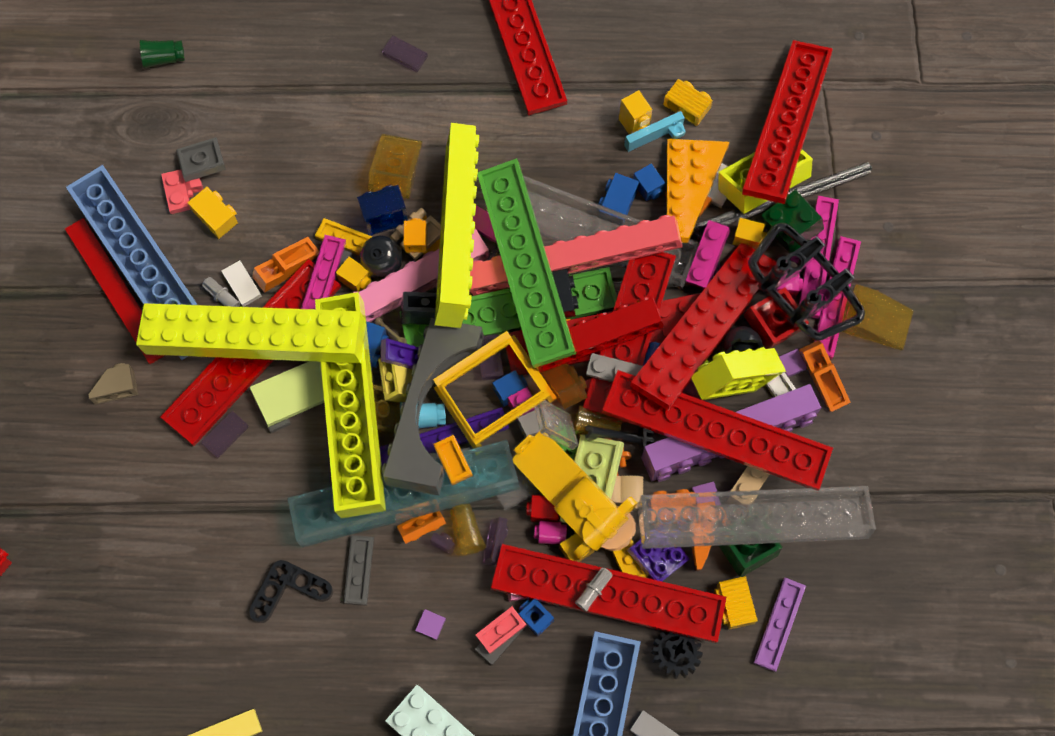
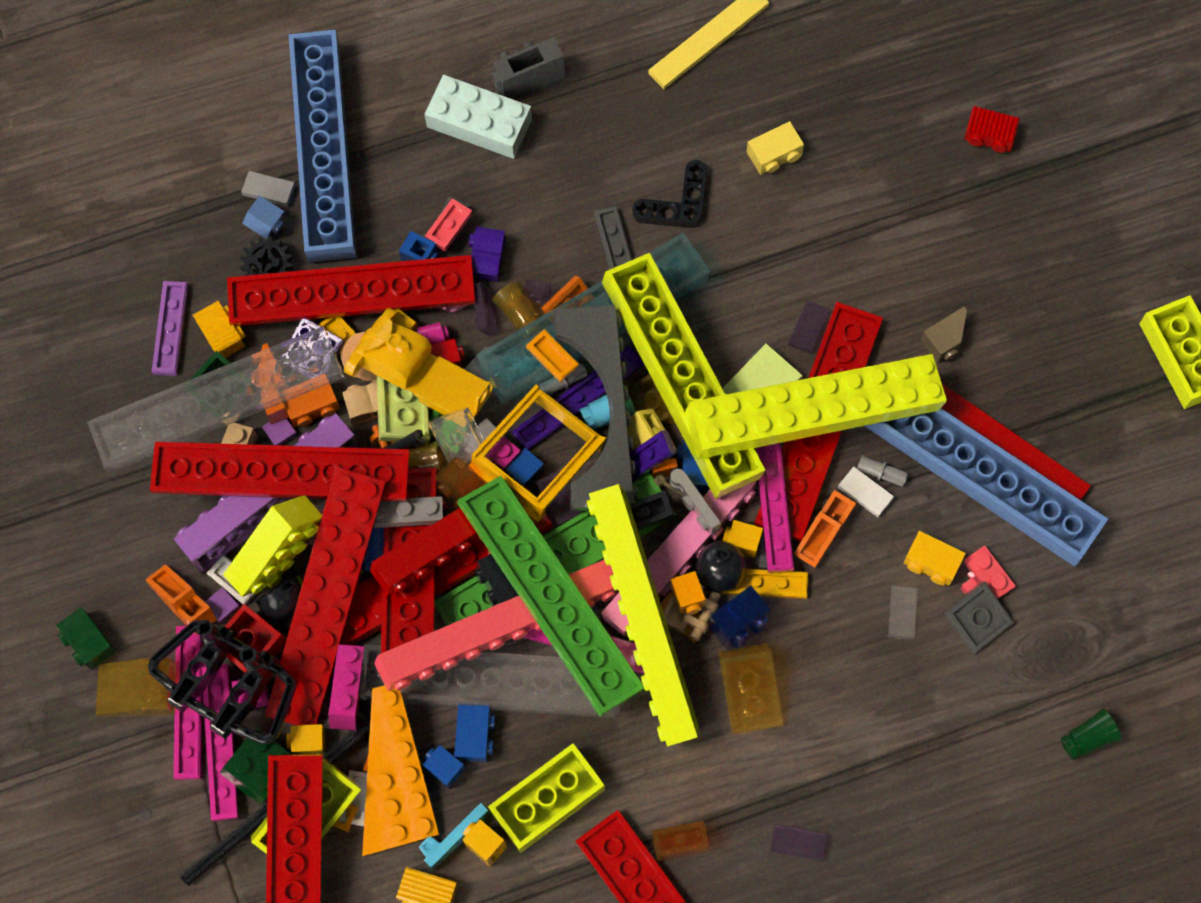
camera: 165 degrees right, 0 degrees up
(180, 607) = (775, 148): none -> light yellow brick
(256, 185) = (902, 612): none -> clear tile
(382, 304) = (693, 500): none -> light grey plate
(430, 624) = (522, 214): medium lavender tile -> none
(475, 594) = (487, 252): none -> dark purple brick
(490, 74) = (680, 840): none -> clear orange brick
(578, 132) = (547, 798): none -> neon yellow brick
(594, 589) = (365, 282): light grey axle -> none
(668, 697) = (263, 217): none -> medium blue brick
(910, 369) = (85, 638): none -> dark green brick

